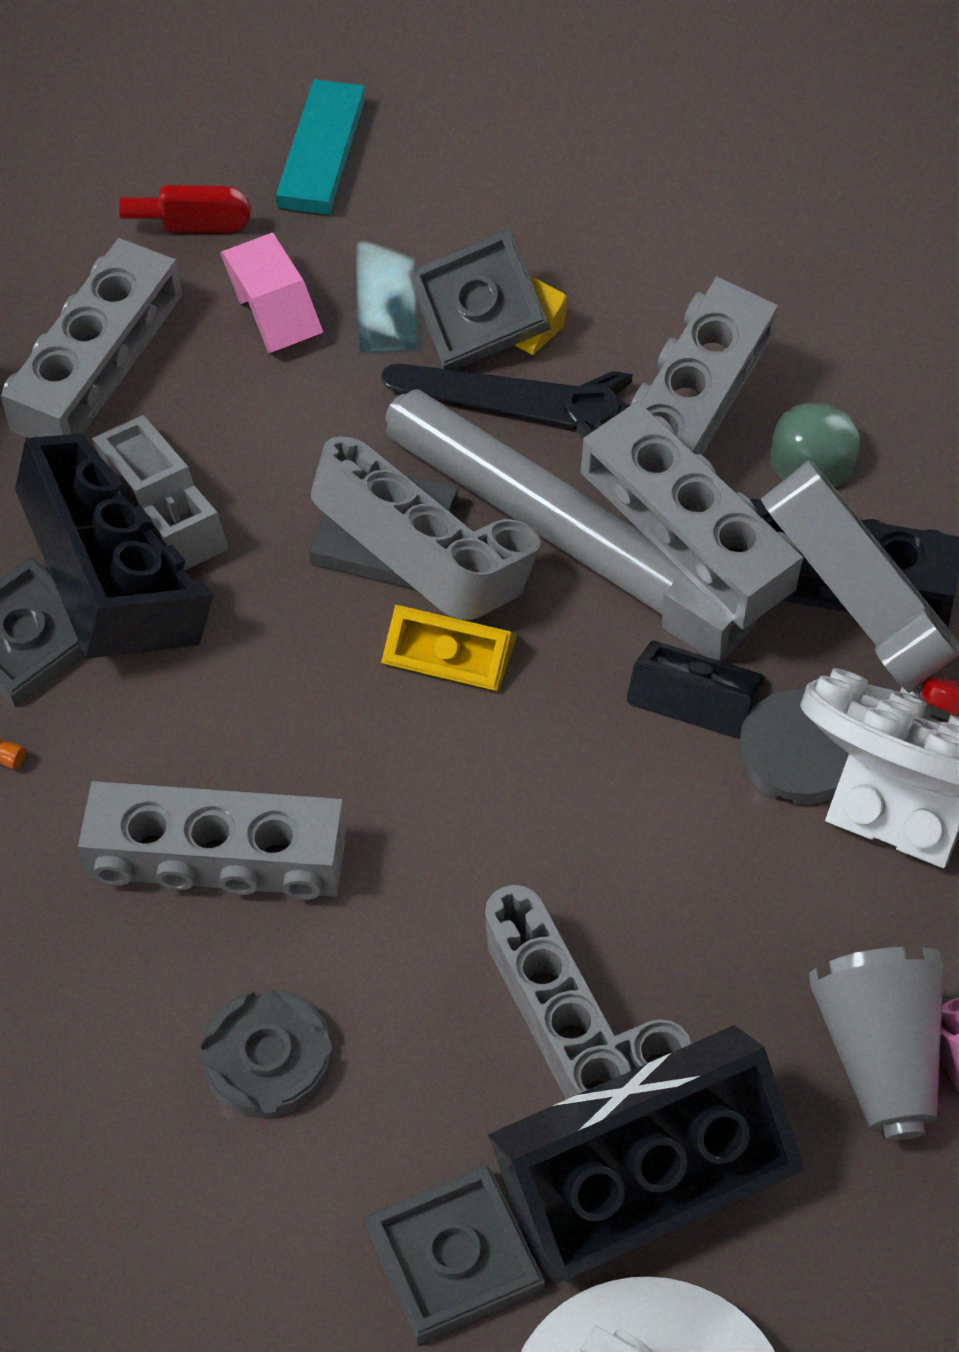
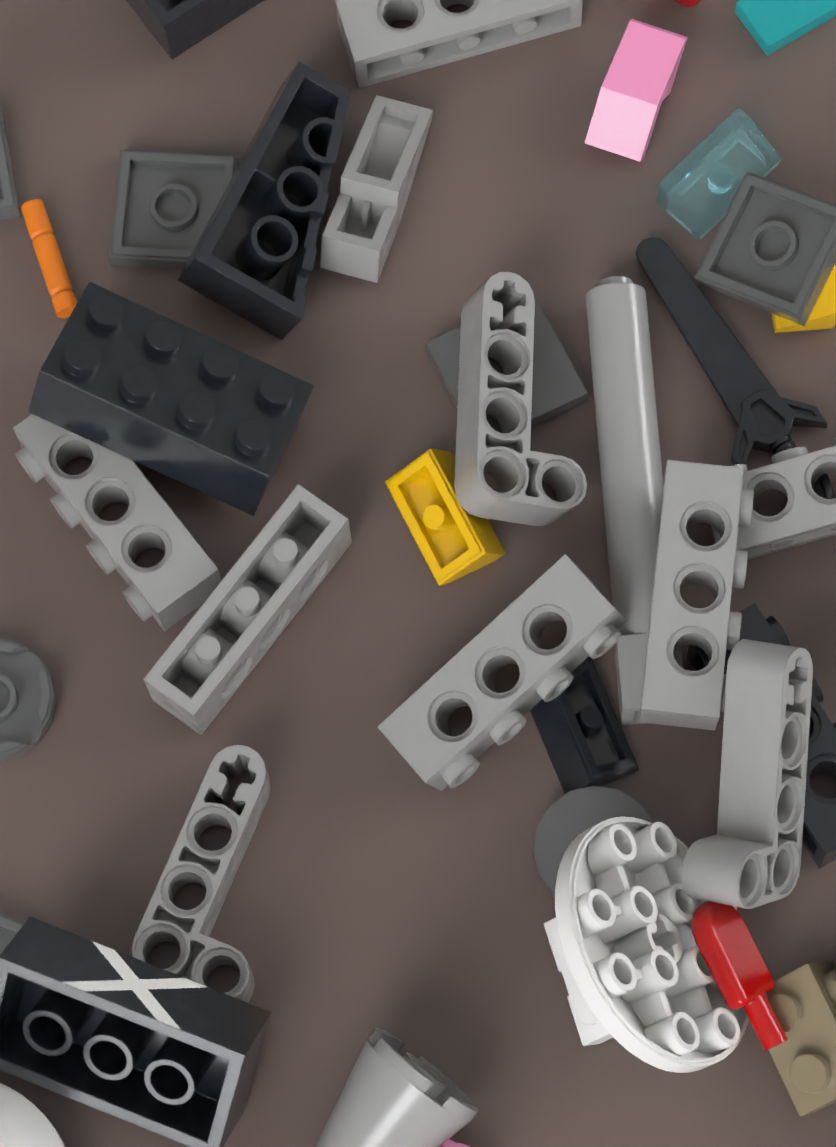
camera: 50 degrees right, 15 degrees up
(178, 721) = (170, 398): none -> black brick
(394, 810) = (249, 609): none -> light grey brick
(613, 589) = (514, 637): none -> light grey brick

